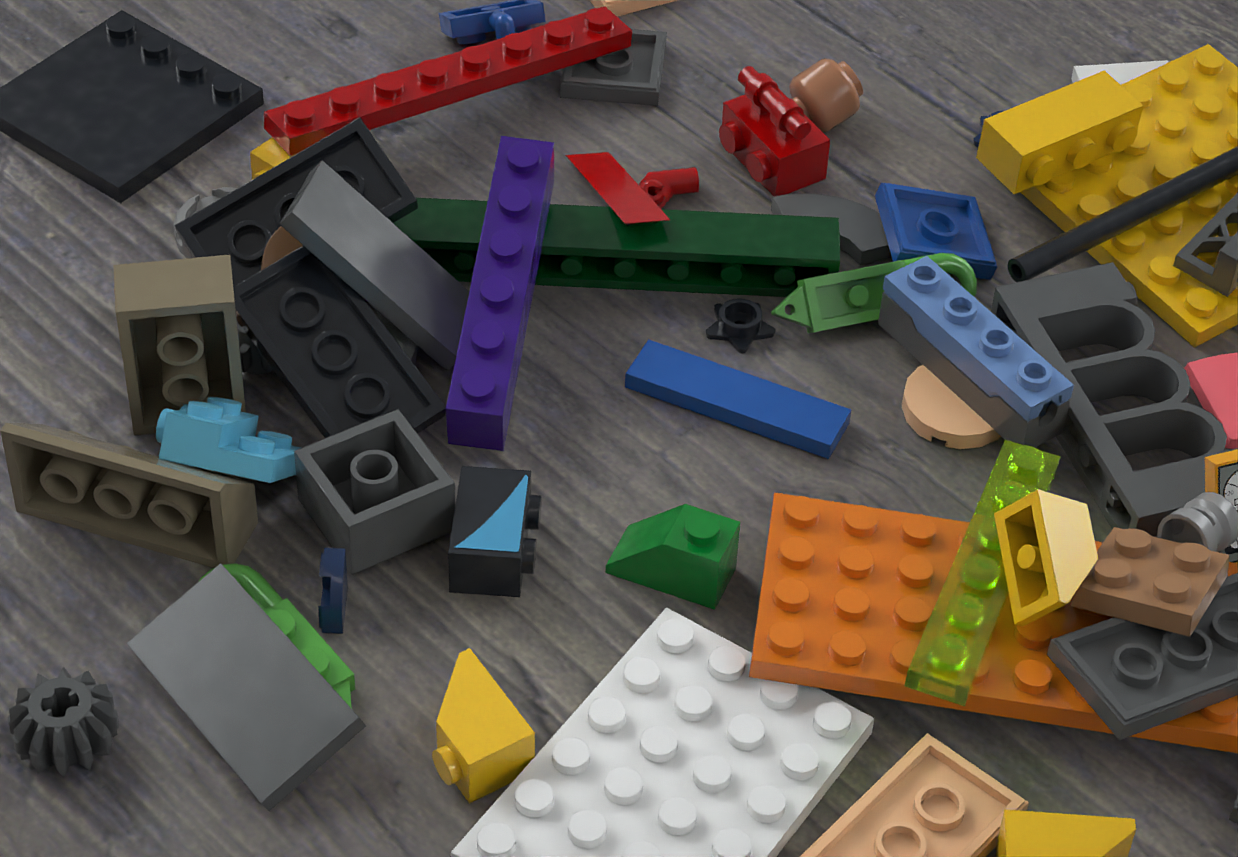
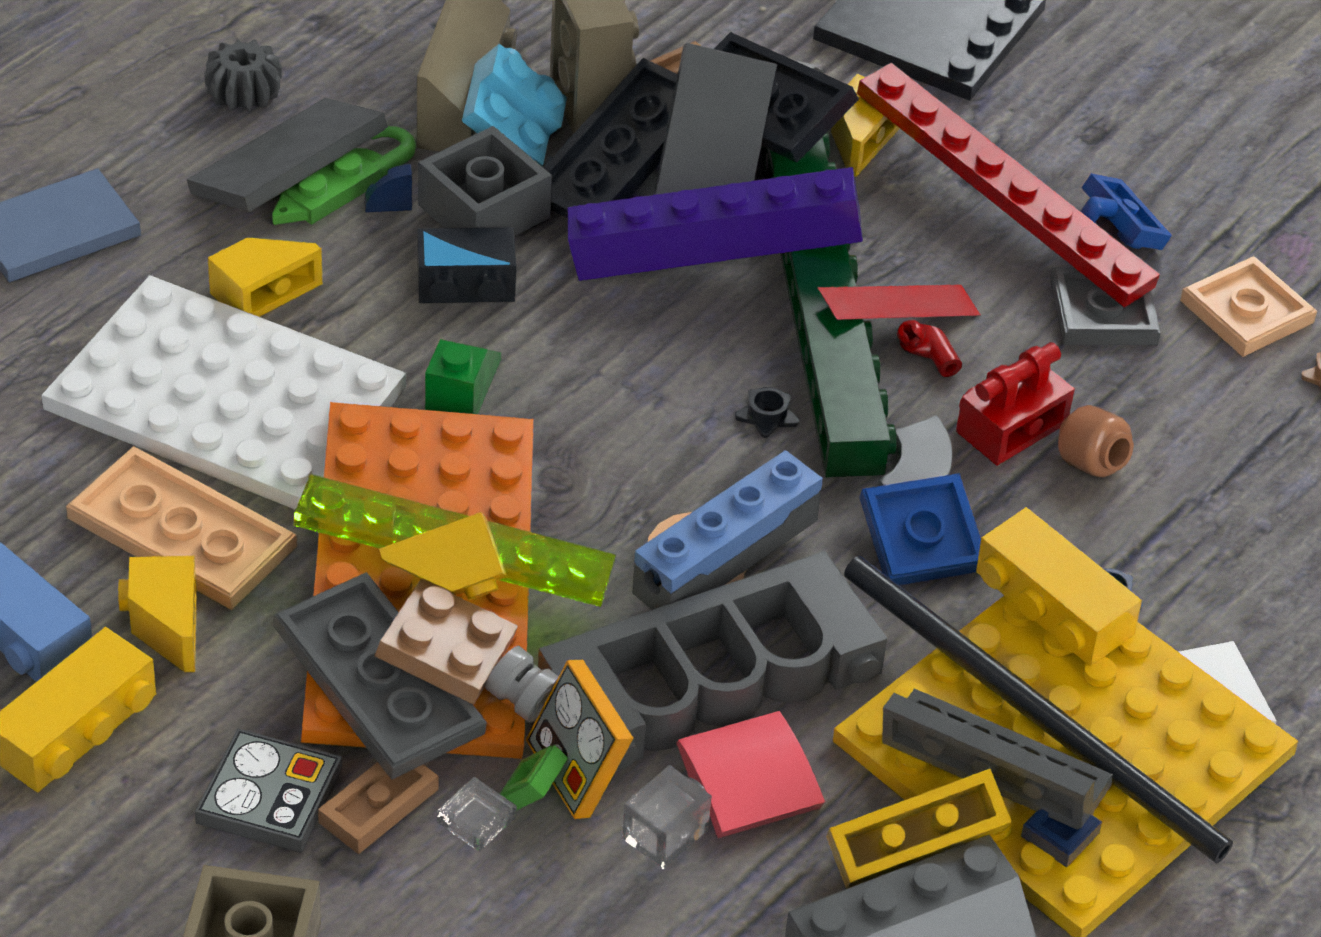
camera: 80 degrees right, 0 degrees up
(738, 398) = (665, 411): blue tile -> none
(857, 293) = (837, 495): bright green plate -> none

